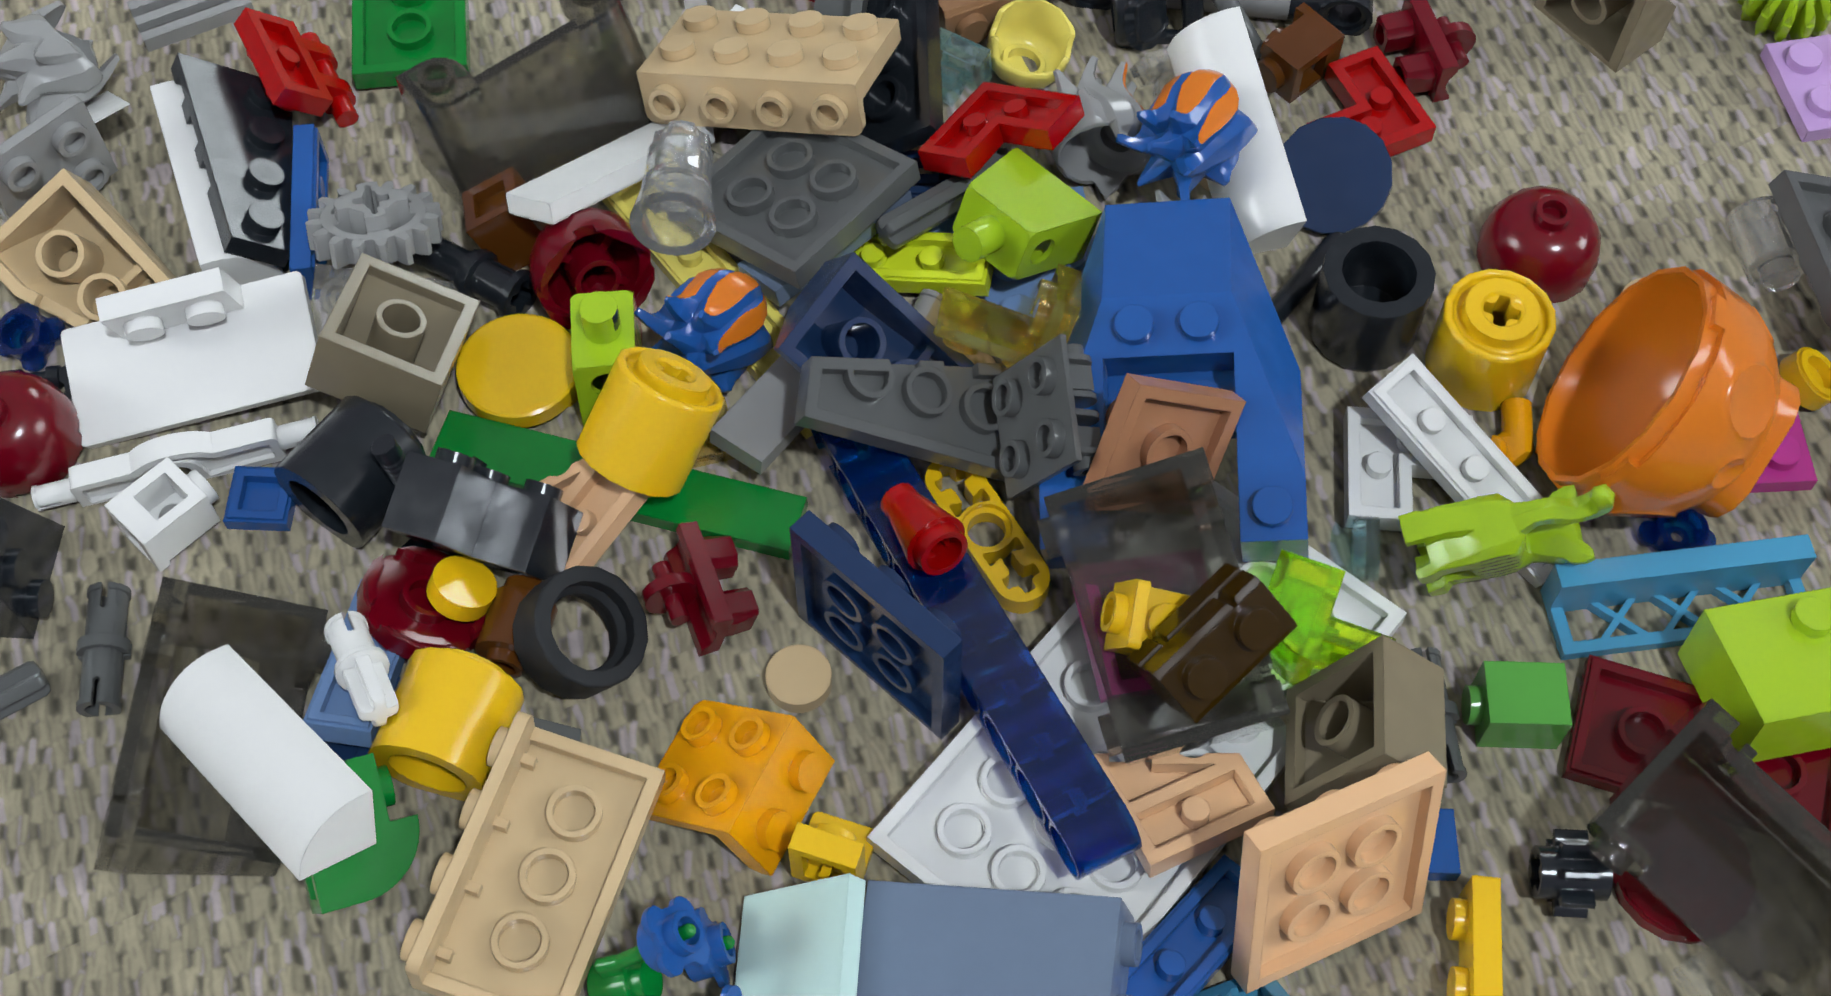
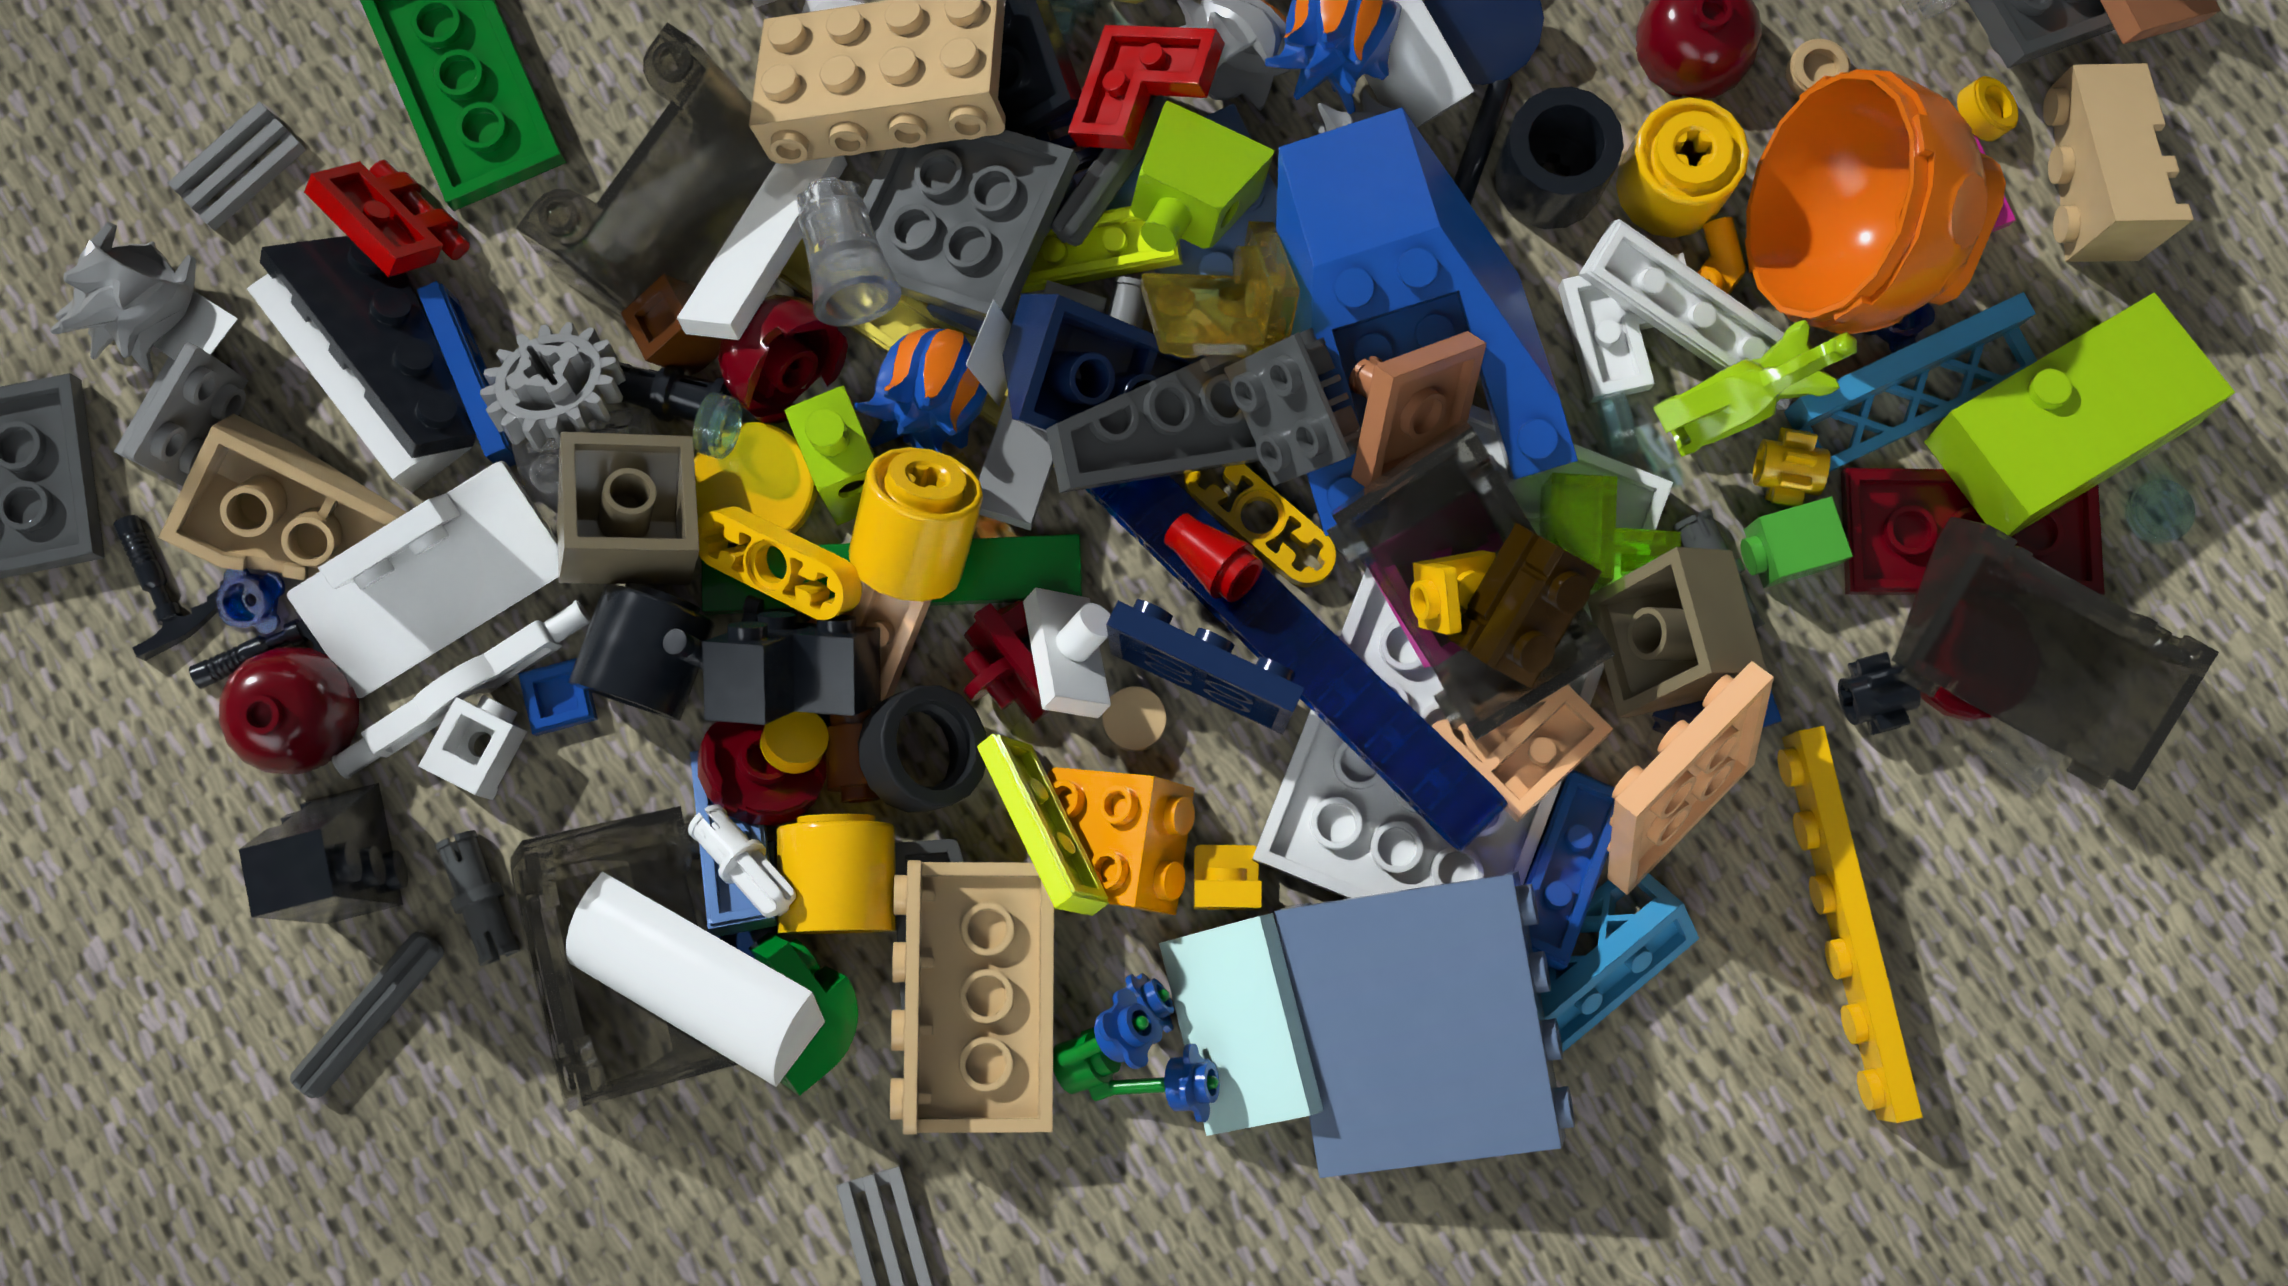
camera: 15 degrees left, 20 degrees up
(506, 300) = (717, 425): none -> clear light blue tile
(532, 425) = (802, 558): none -> yellow beam
(668, 733) = (1043, 825): none -> neon yellow tile
(753, 588) = (1066, 651): none -> white tile
(774, 295) = (986, 355): none -> white sticker
(1532, 629) = (1791, 467): none -> yellow gear

